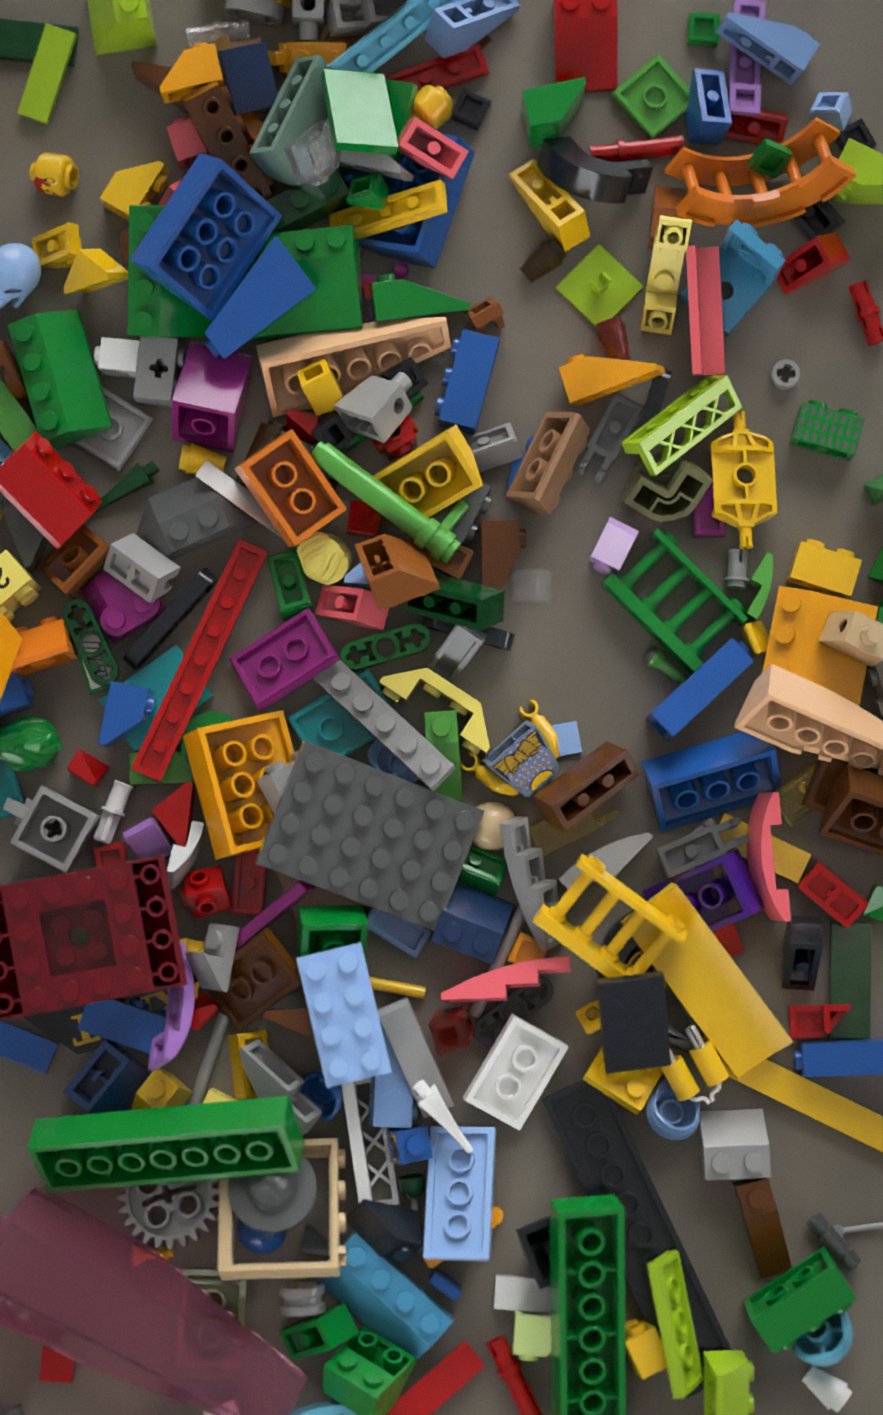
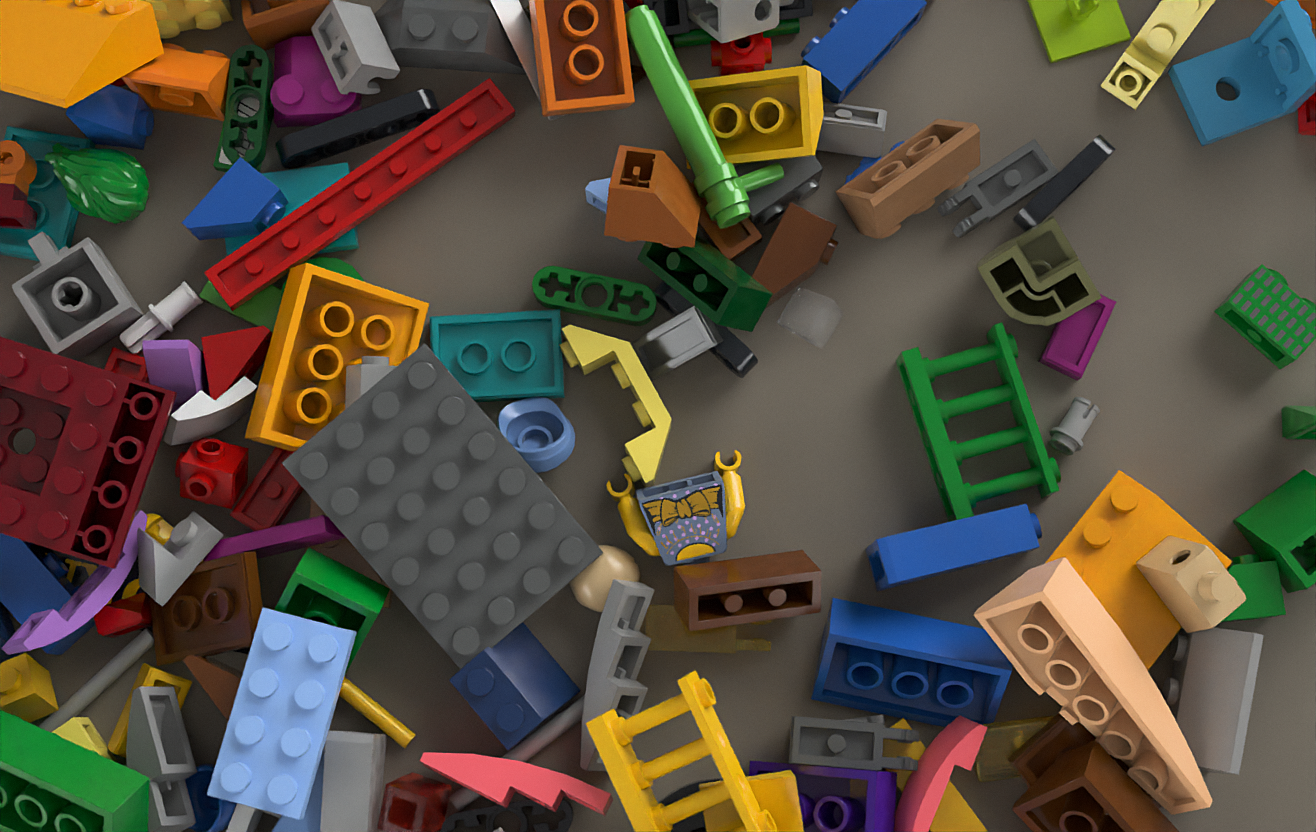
camera: 25 degrees right, 5 degrees down
(88, 768) = (160, 250): red slope -> none
(284, 659) = (464, 244): magenta tile -> none
(289, 584) = (521, 166): green slope -> none
(324, 557) = (578, 151): light yellow hair -> none
(351, 607) = (579, 227): coral slope -> none
(363, 520) = (649, 130): red slope -> none
(385, 724) = (536, 371): light grey plate -> none
(398, 931) = (418, 649): medium blue tile -> none
(443, 735) = (594, 457): bright green slope -> none
(483, 870) = (563, 626): green slope -> none
(525, 950) = (562, 756): light orange tile -> none
(568, 738) = (756, 522): light blue piece -> none
(597, 377) = (1022, 108): light orange slope -> none
(613, 338) = (1063, 77): clear red cone -> none
(613, 547) = (936, 315): lavender slope -> none
(613, 856) = (733, 696): light grey slope -> none
(655, 659) = (916, 482): bright green piece -> none
(675, 415) = (1095, 199): lime fence -> none
(705, 311) = (1194, 98): coral fence -> none
(739, 502) = (1115, 341): yellow plate -> none
(755, 637) = (1055, 520): yellow slope -> none
(762, 581) = (1097, 457): bright green slope -> none
(779, 367) = (1257, 237): light grey bush -> none
(824, 569) = (1185, 480): yellow brick -> none

